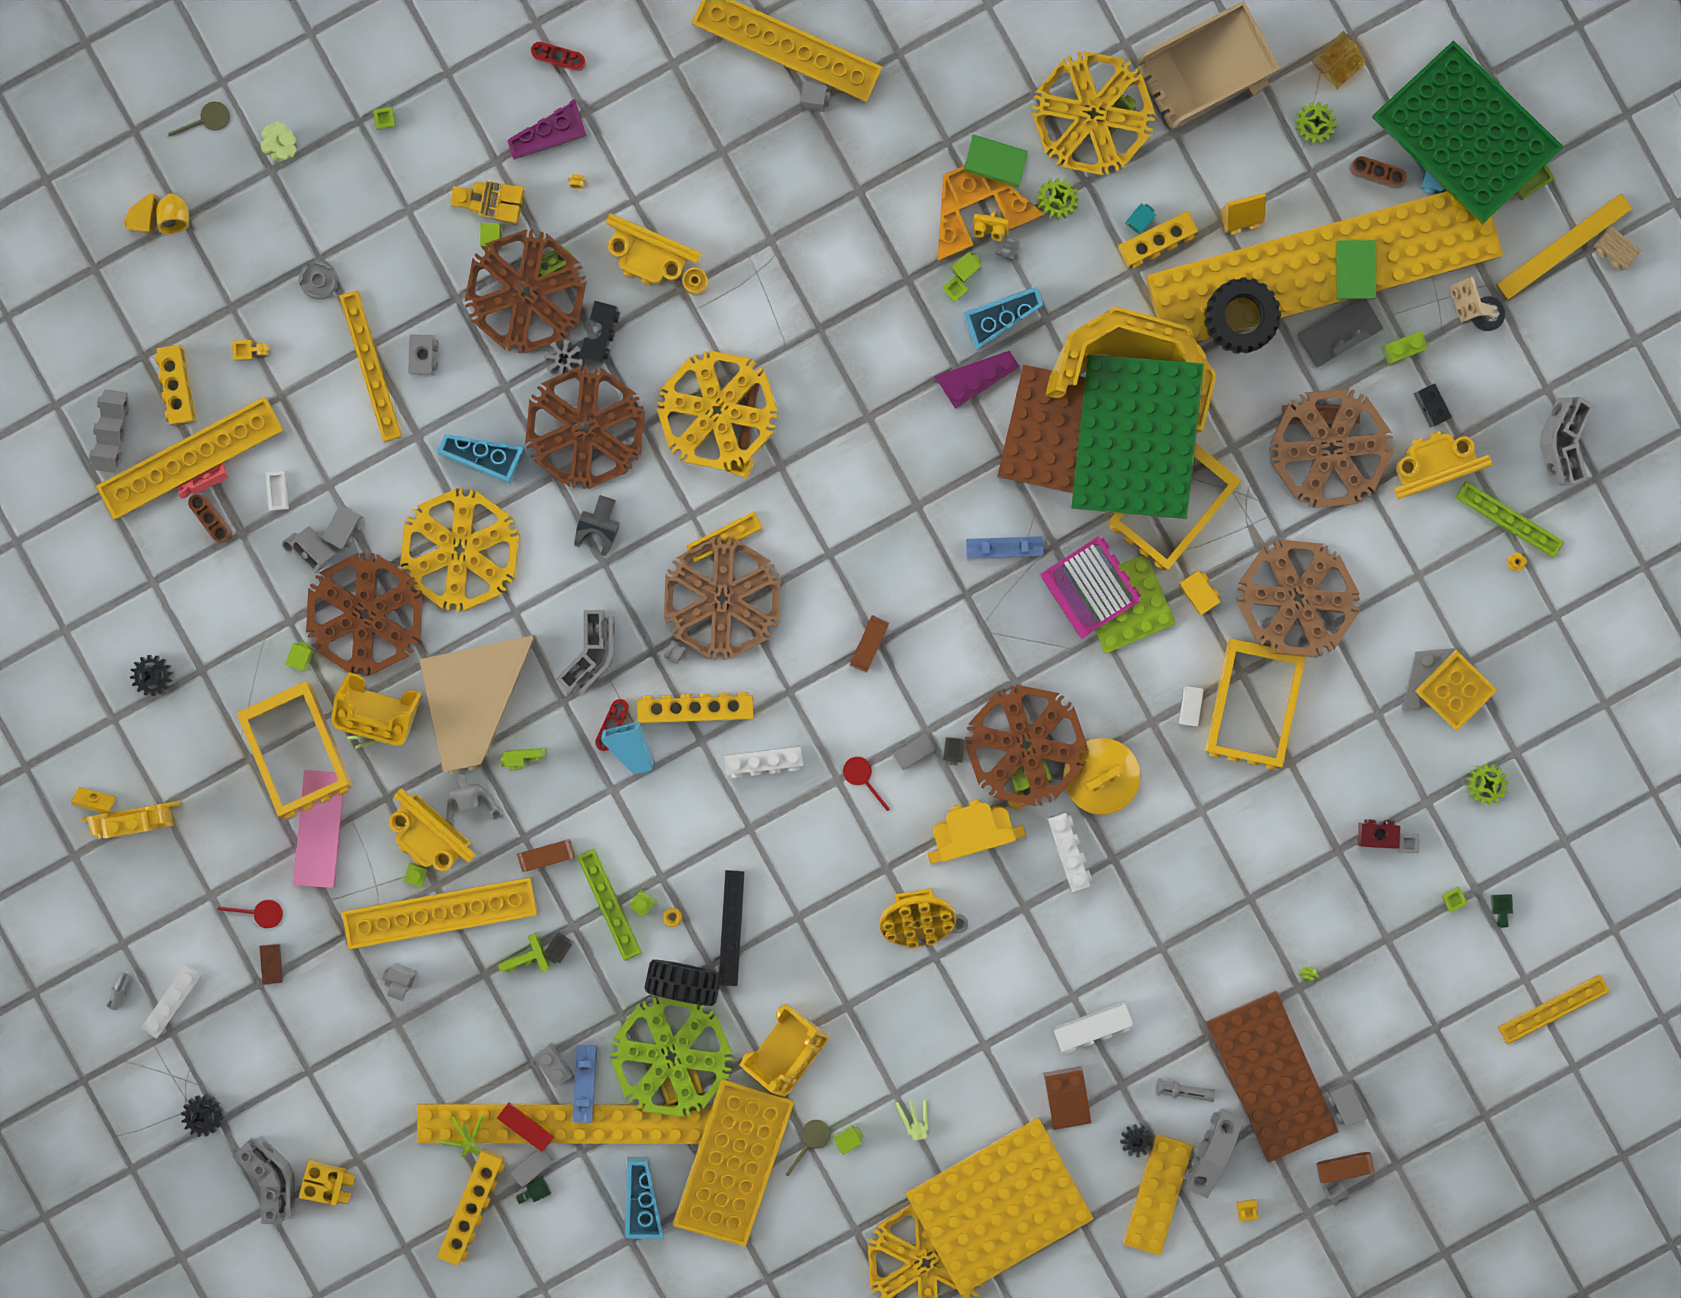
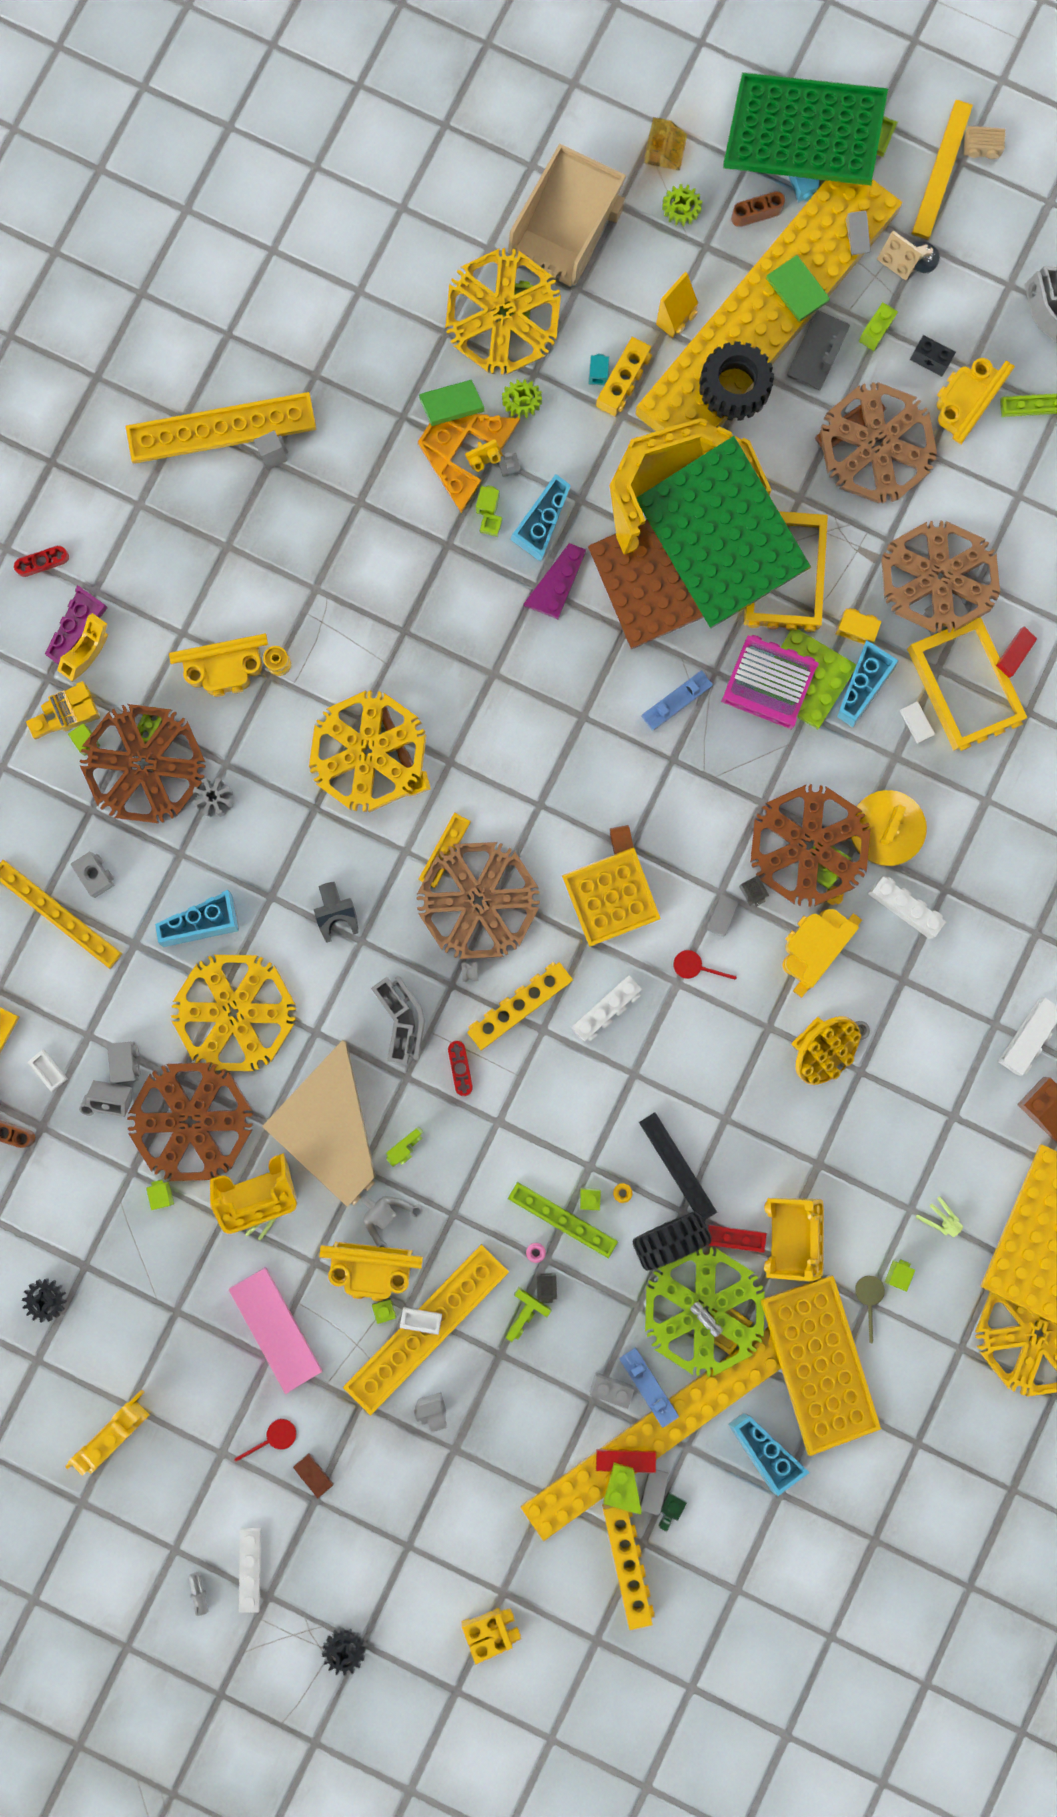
camera: 40 degrees left, 5 degrees down
(93, 800) = (65, 1443): yellow plate -> none
(263, 1169) = (420, 1656): light grey brick -> none
(320, 796) = (257, 1299): yellow window -> none
(439, 903) = (420, 1320): none -> white tile
(468, 1142) = (586, 1509): lime plant -> none
(507, 1147) = (622, 1489): none -> lime wing
(543, 160) = (86, 650): none -> yellow arch
(546, 855) = (481, 1216): dark orange beam -> none
(569, 921) = (535, 1259): none -> bright pink plate
(577, 181) = (125, 648): yellow plate -> none
(584, 444) = (250, 837): dark orange plate -> none
(597, 349) = (233, 770): black arch -> none
(629, 746) = (488, 1075): medium azure slope -> none
(667, 1063) = (706, 1319): none -> light grey axle
(738, 1017) = (737, 1238): none -> red plate
(832, 672) = (611, 896): none -> yellow plate
(1171, 643) = (868, 678): none -> medium azure wedge
(1314, 706) = (1016, 652): none -> red tile
(1442, 258) = (858, 232): none -> light grey slope

